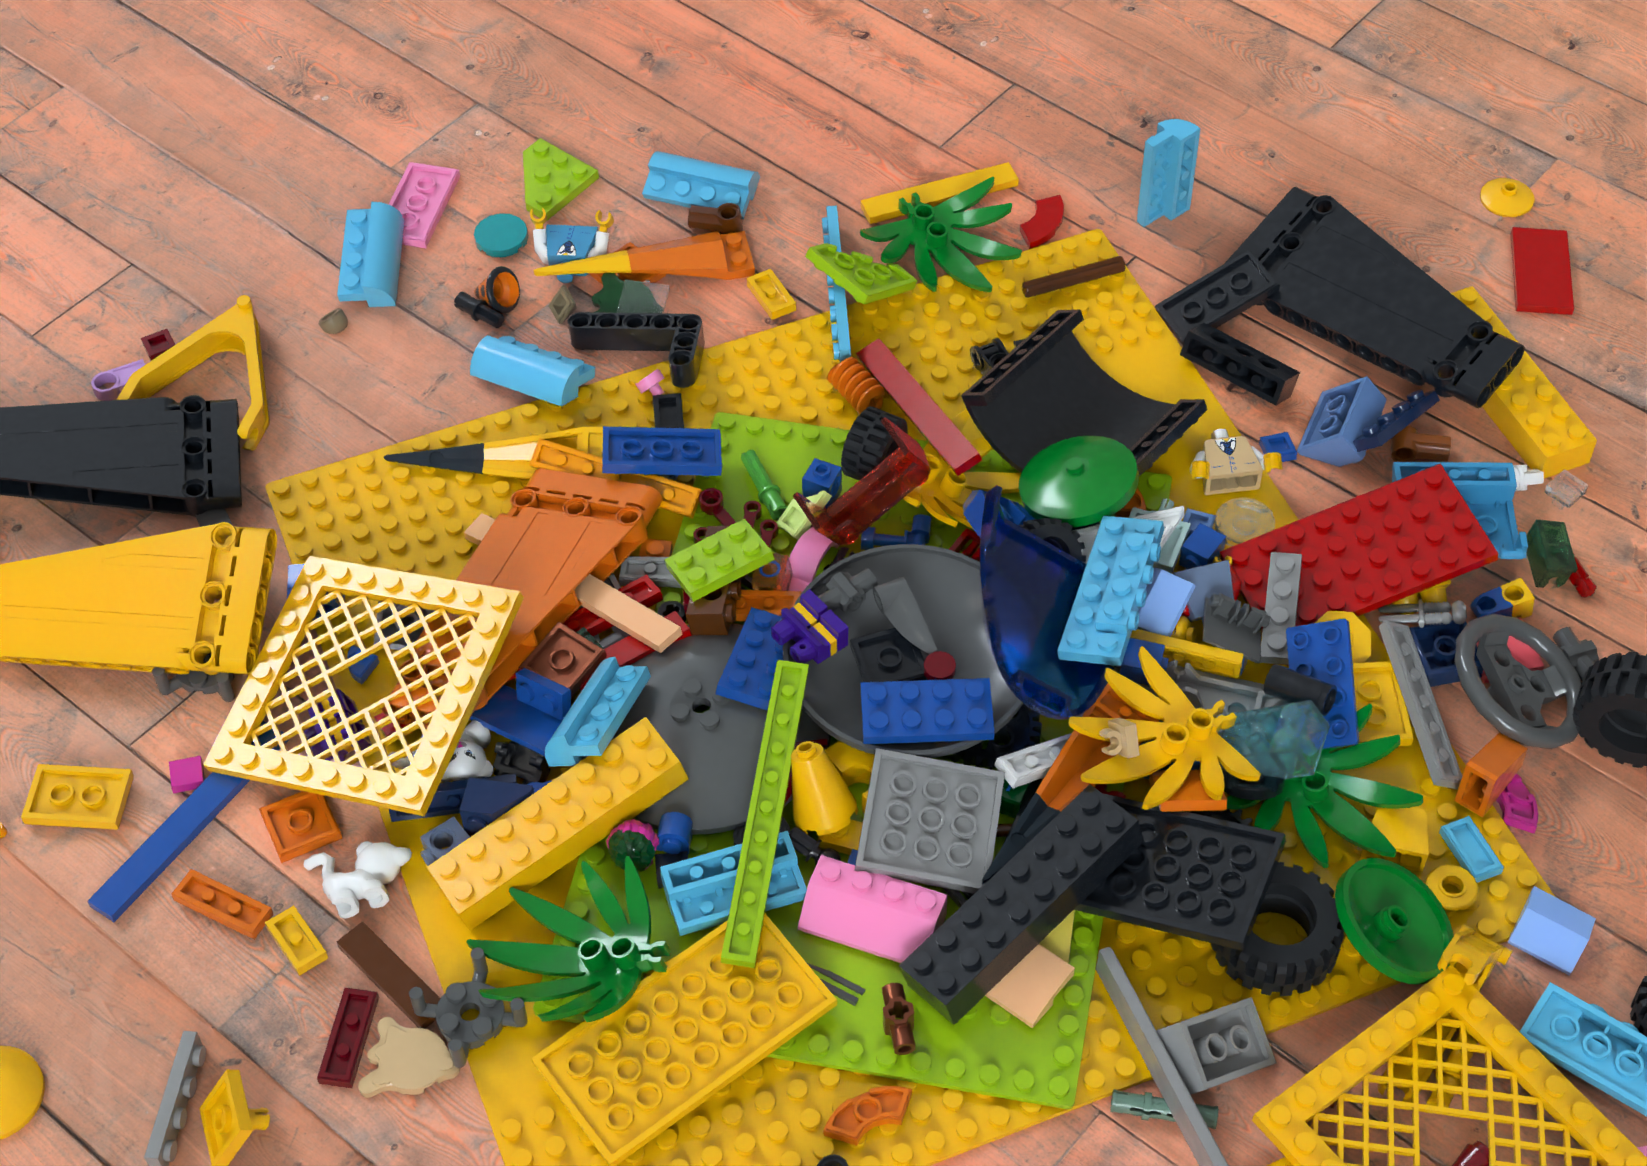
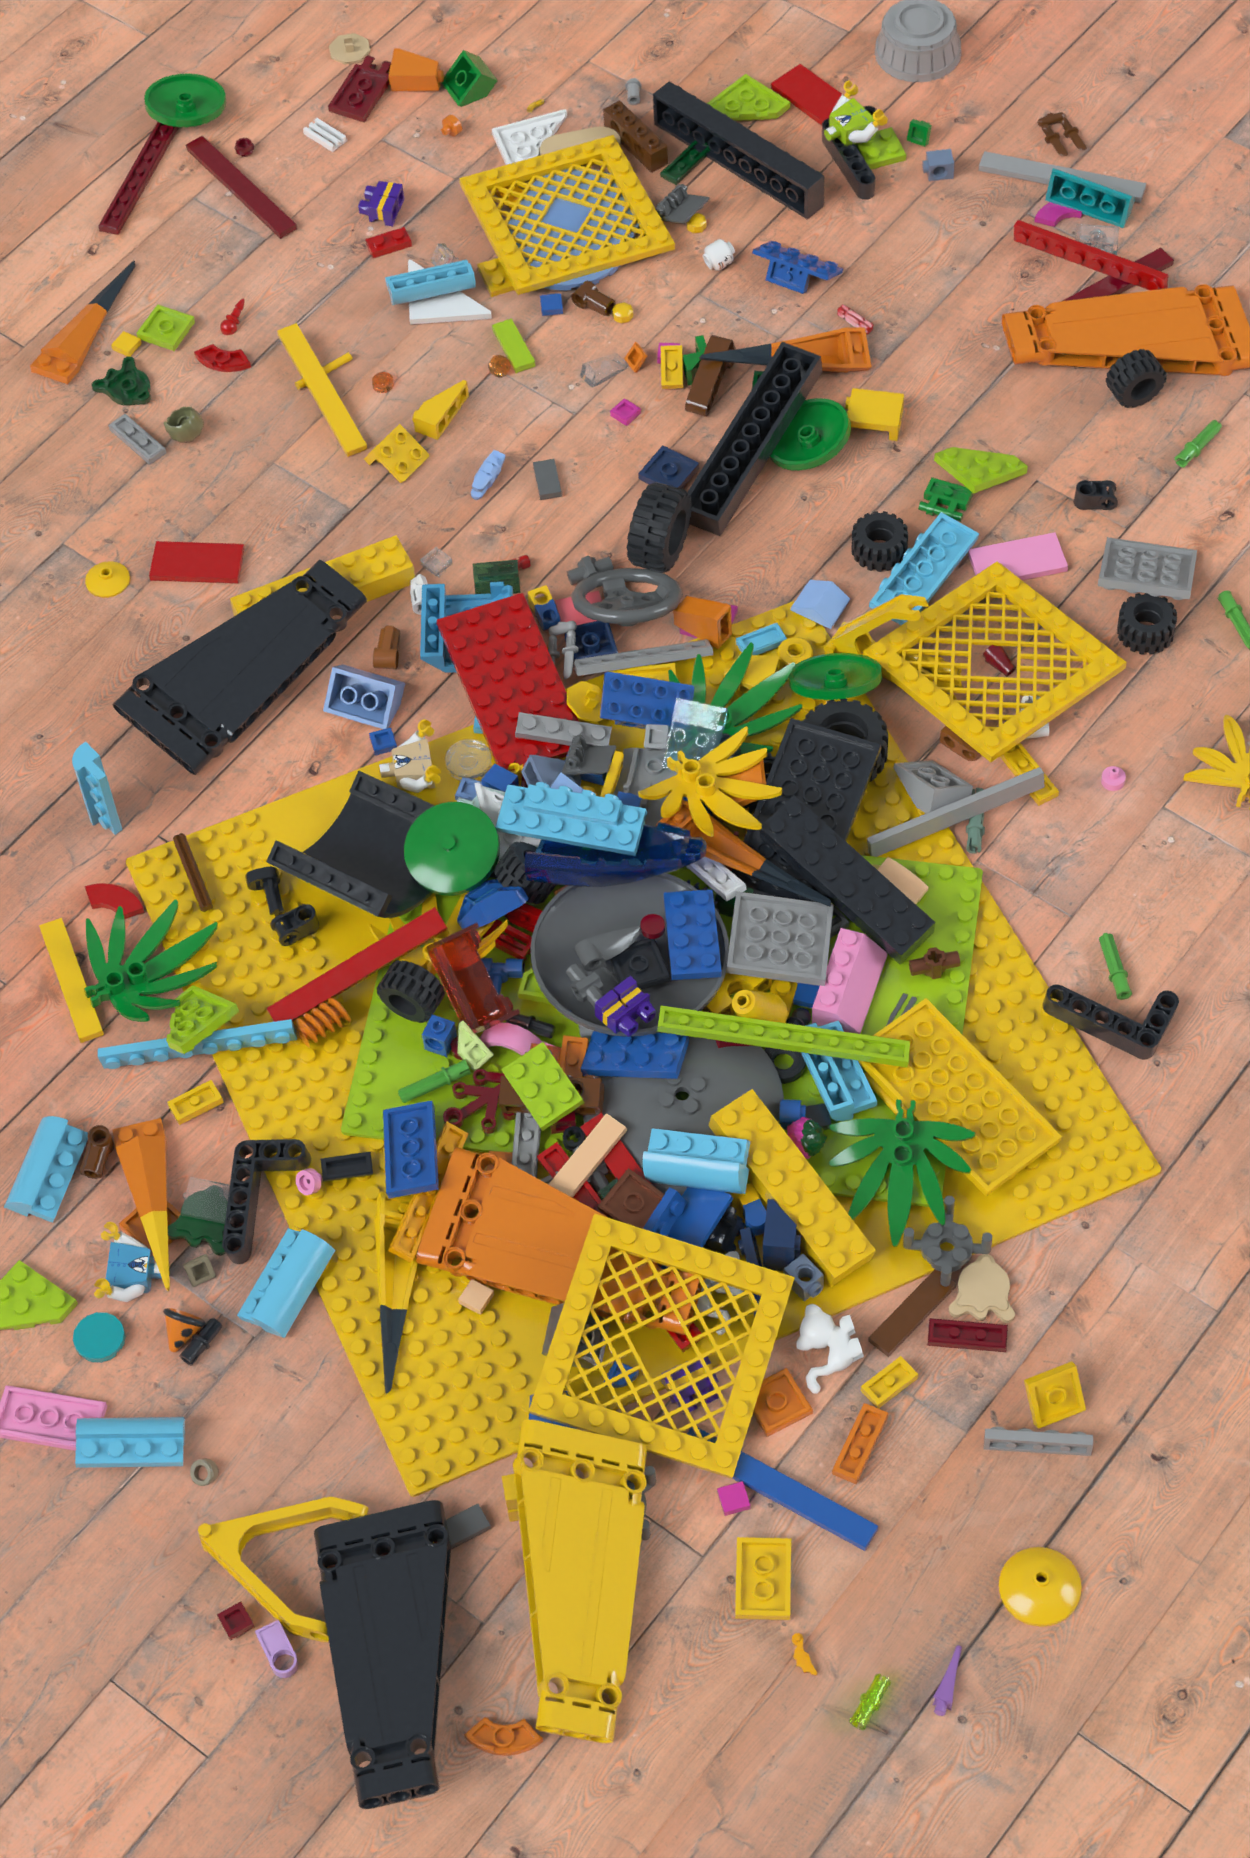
camera: 90 degrees left, 5 degrees up
(867, 1111) = (999, 989): orange tile -> none
(1122, 738) = (716, 809): tan tile -> none
(1218, 295) = (226, 770): black tile -> none
(1239, 363) = (299, 758): black brick -> none
(1298, 687) = (658, 710): black pin -> none
(1395, 421) = (369, 657): dark blue plate -> none

